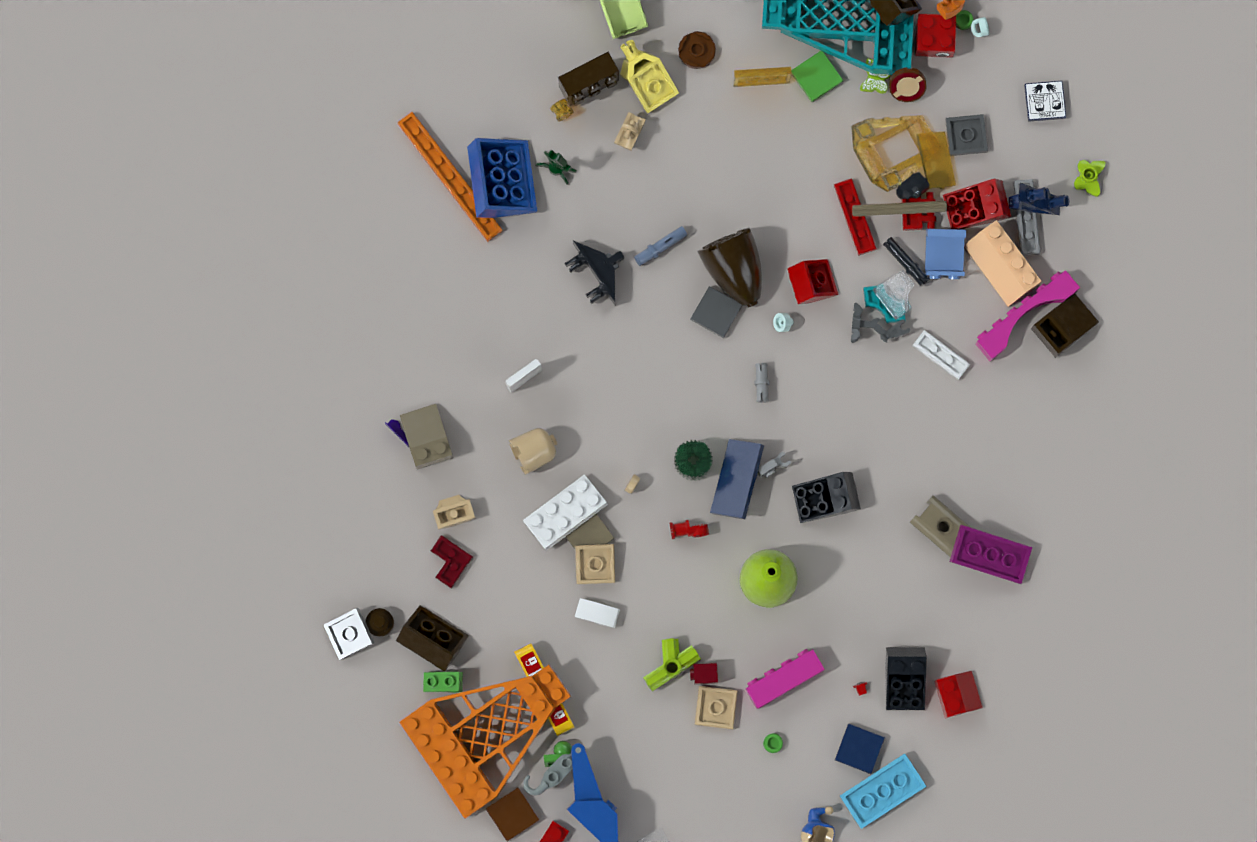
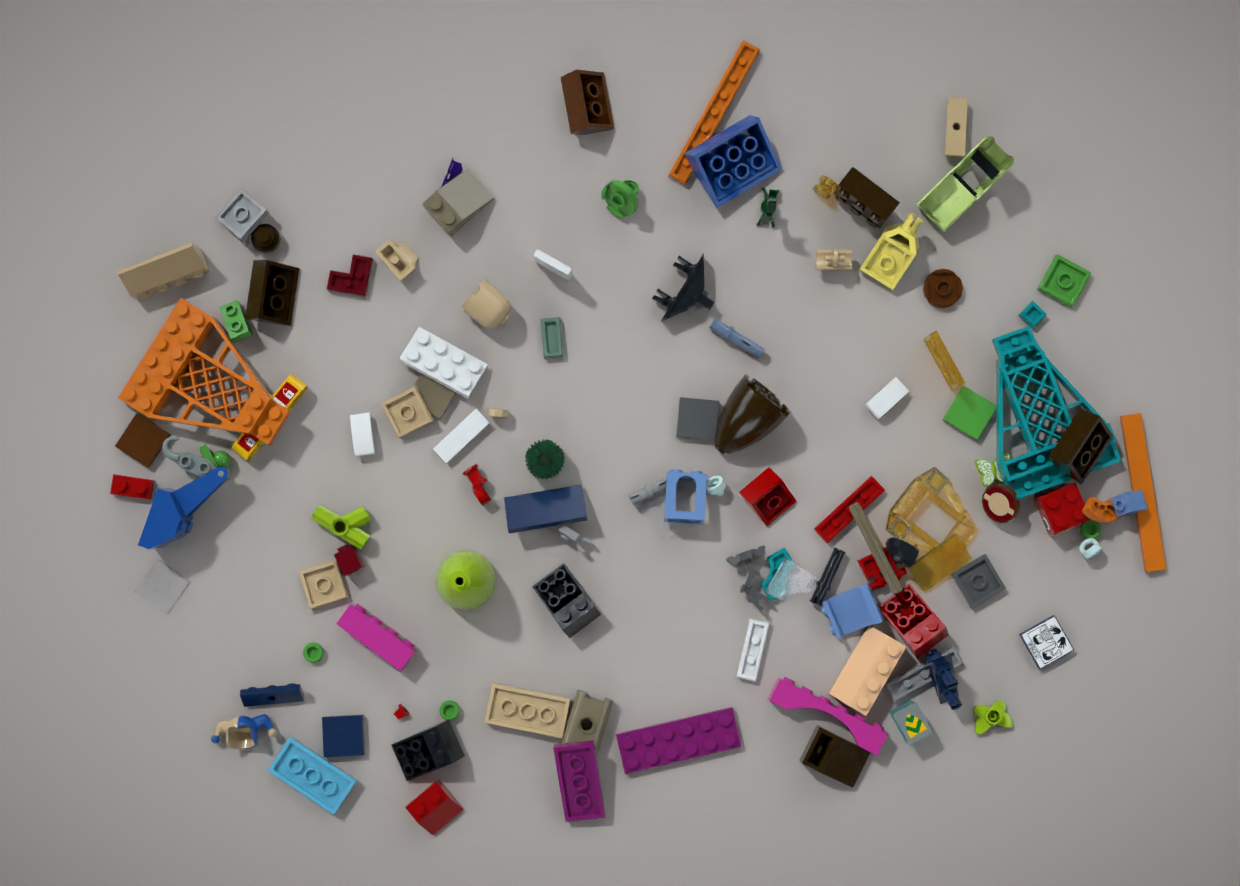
camera: 65 degrees right, 5 degrees up
(369, 725) = (163, 271): none -> tan slope
(389, 283) = (587, 102): none -> reddish brown slope
(490, 290) = (621, 197): none -> bright green tile
(585, 407) = (551, 337): none -> sand green tile
(637, 526) = (461, 436): none -> white tile
(771, 140) = (887, 398): none -> white slope
(790, 372) = (657, 510): none -> clear tile
(792, 370) = (685, 517): none -> medium blue panel
(795, 795) = (271, 695): none -> dark blue tile
(878, 644) = (449, 710): none -> bright green tile
(908, 574) = (527, 710): none -> tan plate
(992, 454) = (678, 740): none -> magenta plate
(1063, 246) = (910, 722): none -> piece

